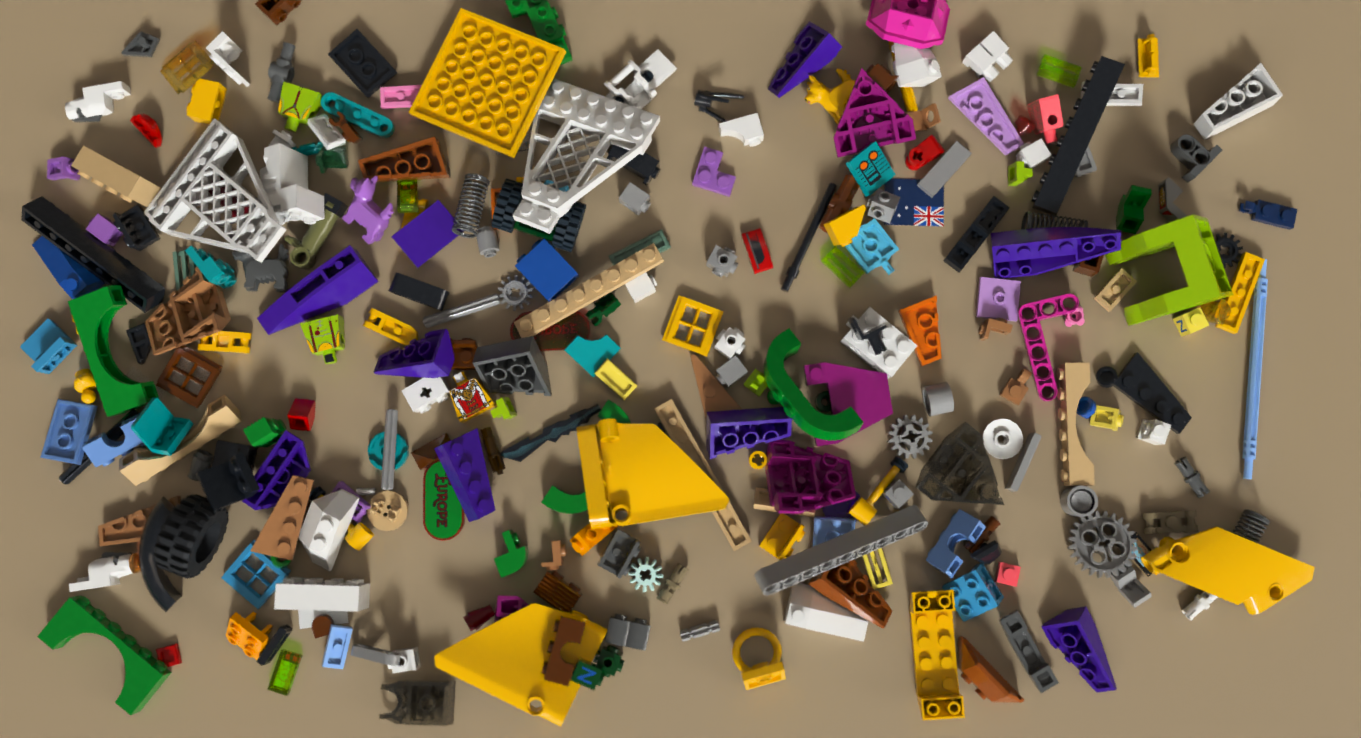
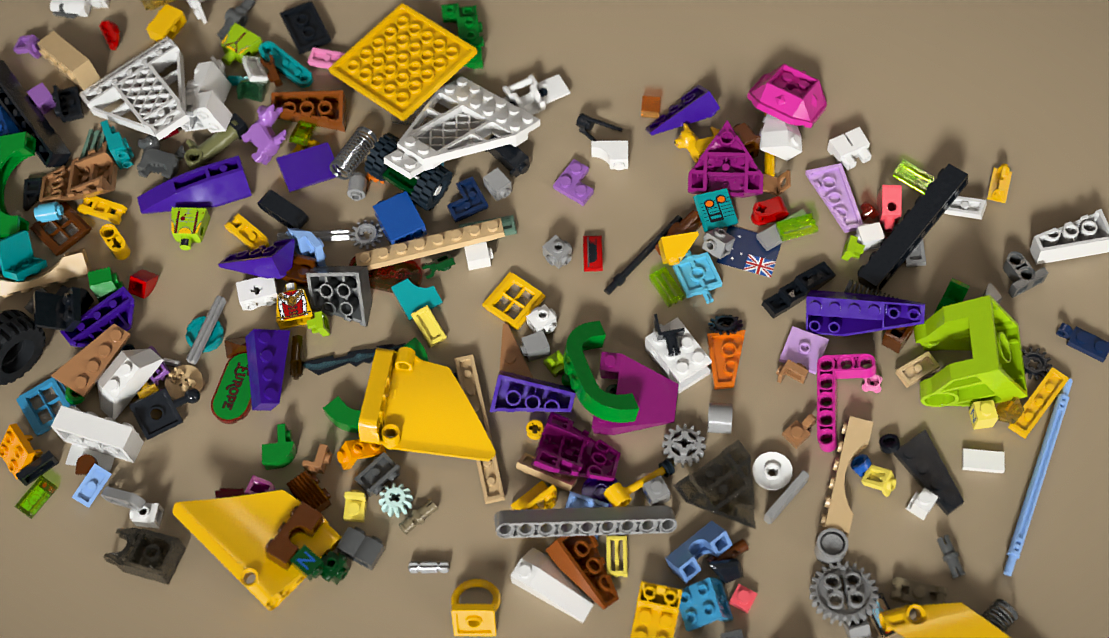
camera: 15 degrees right, 20 degrees down
(169, 364) = (48, 212): none -> medium azure brick
(254, 372) = (116, 239): none -> yellow beam
(375, 541) = (170, 415): none -> black plate
(460, 327) = (307, 244): none -> light blue plate
(607, 591) = (355, 506): none -> light yellow bracket
(614, 225) = (471, 202): none -> dark blue plate
(766, 61) = (650, 107): none -> clear orange piece
(915, 287) = (733, 322): none -> black gear
(971, 155) = (795, 224): none -> clear neon green tile
(1199, 368) = (983, 460): none -> white tile

